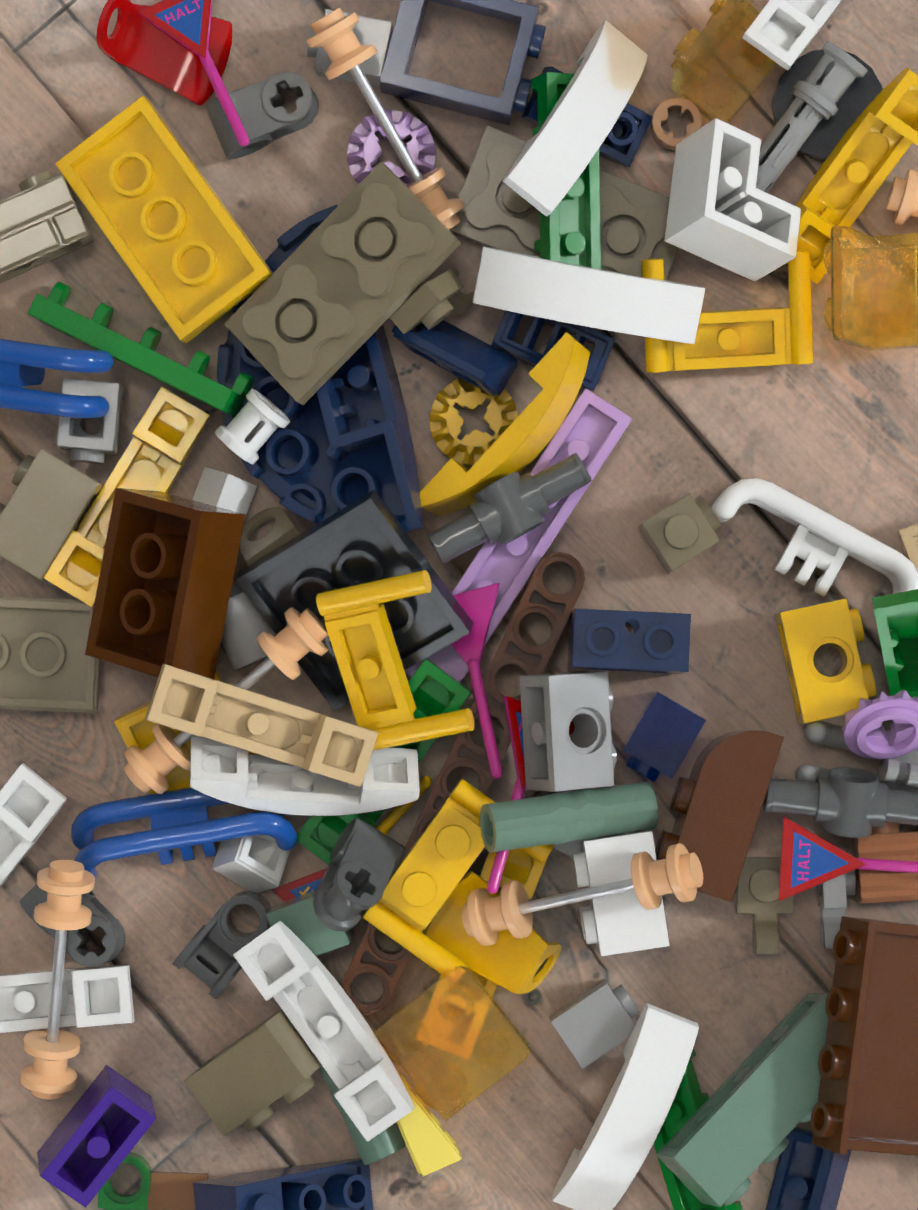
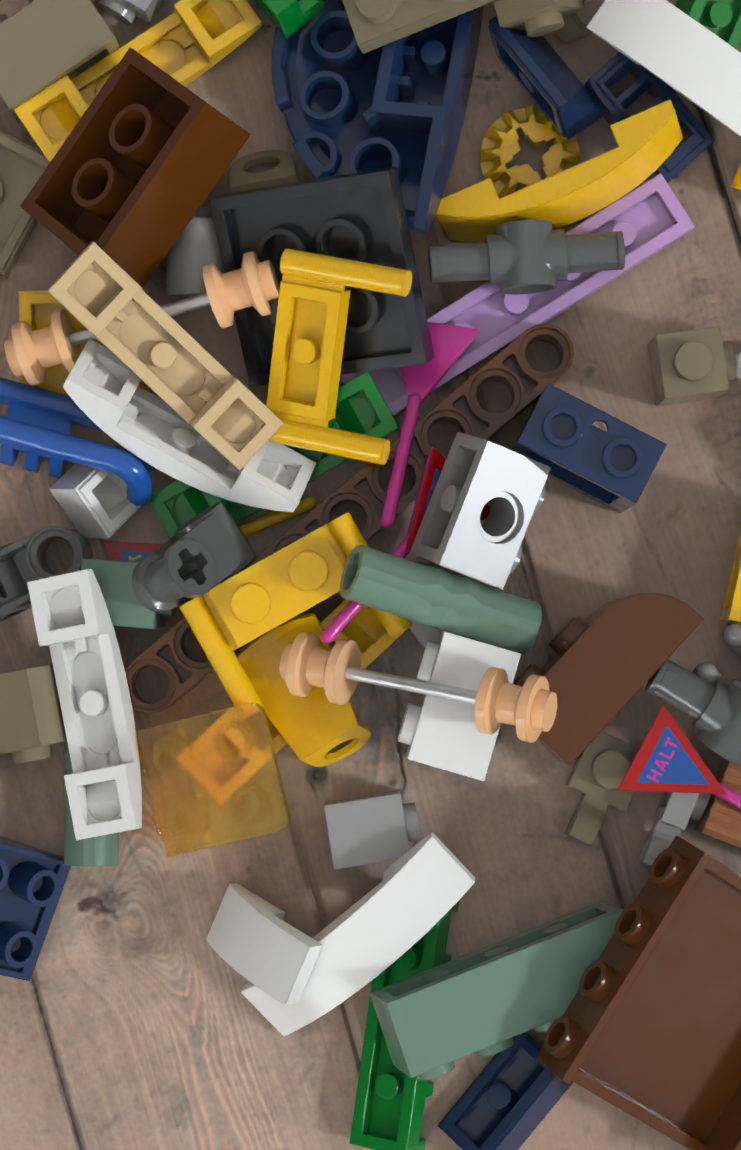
camera: 25 degrees right, 0 degrees up
(224, 491) = (246, 110): white slope -> none
(252, 426) = (288, 67): white bush -> none
(426, 1138) = (140, 864): light yellow slope -> none
(553, 1156) = (262, 946): none -> white slope
(661, 737) = (573, 568): clear blue brick -> none

